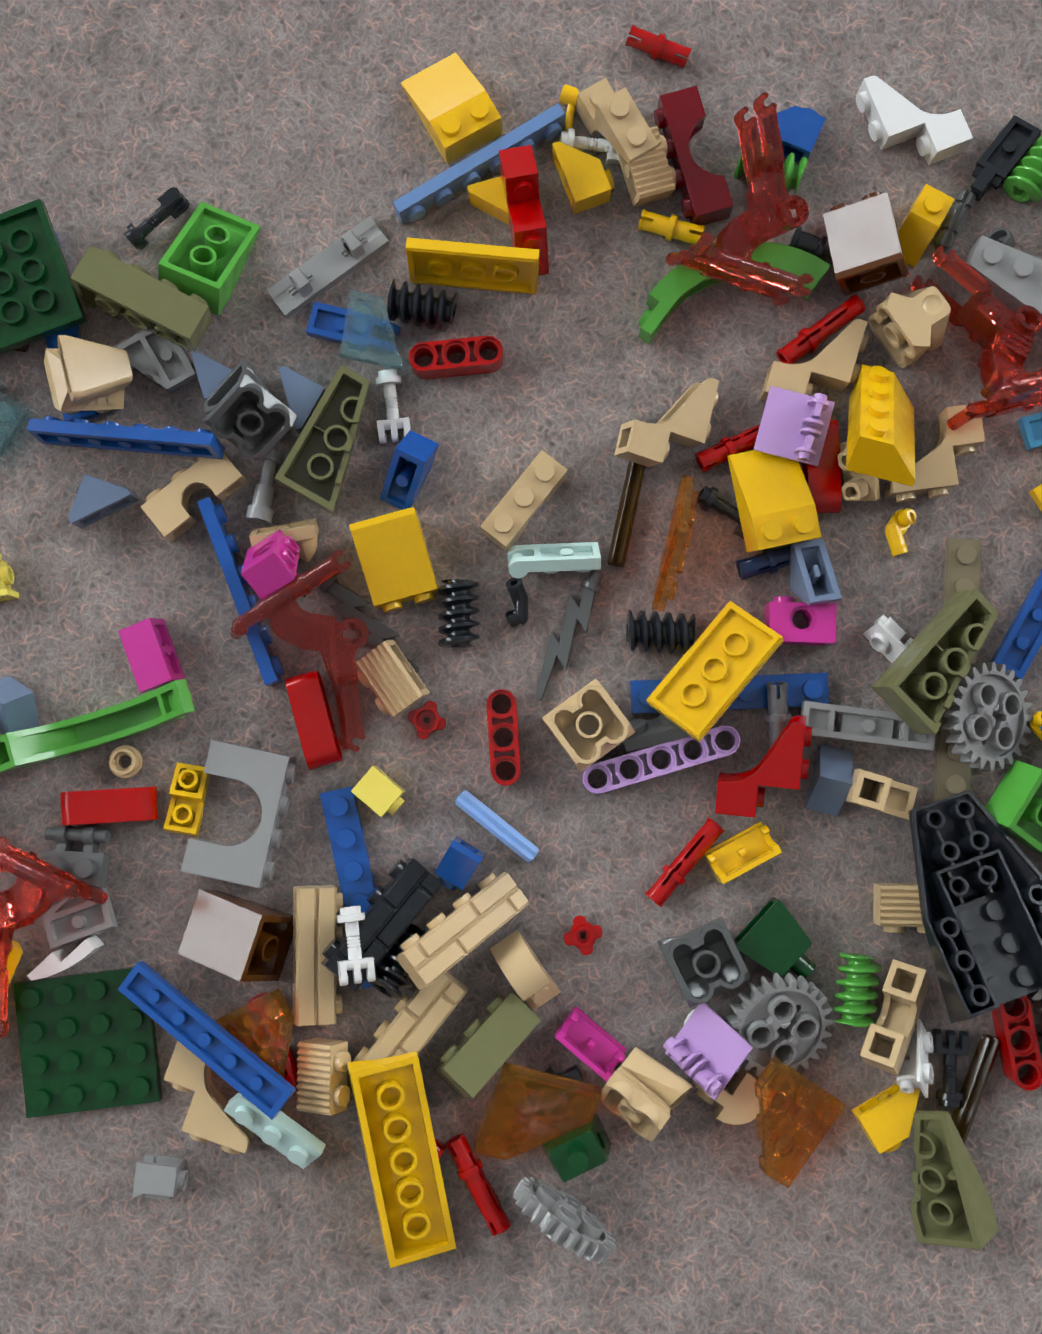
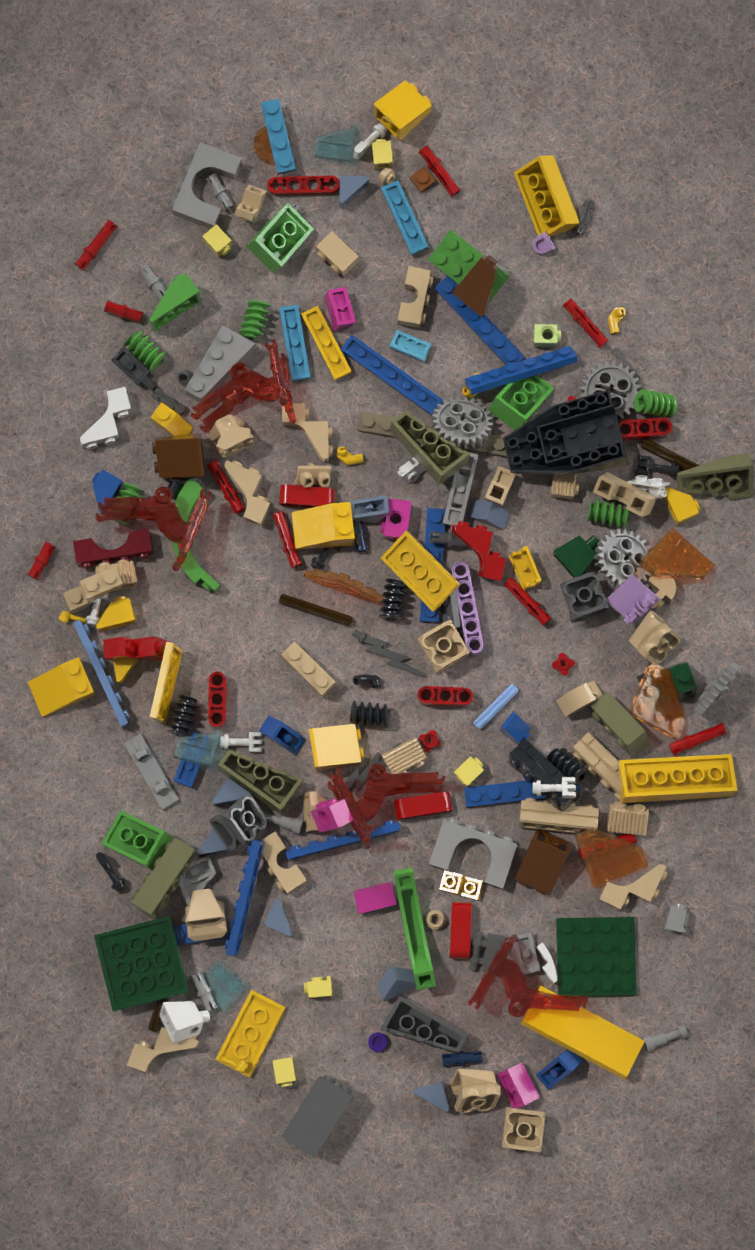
camera: 90 degrees left, 5 degrees down
(207, 1039) = (599, 880): blue plate -> none
(281, 1132) = (654, 849): light aqua plate -> none
(462, 930) = (552, 729): tan brick -> none
(553, 558) = (343, 656): light aqua plate -> none
(590, 1043) = (624, 666): dark pink hinge -> none
(670, 227) = (153, 565): yellow pin -> none
(683, 424) = (271, 571): tan arch -> none
(794, 425) = (283, 509): lavender hinge -> none
(881, 427) = (292, 461): yellow slope -> none

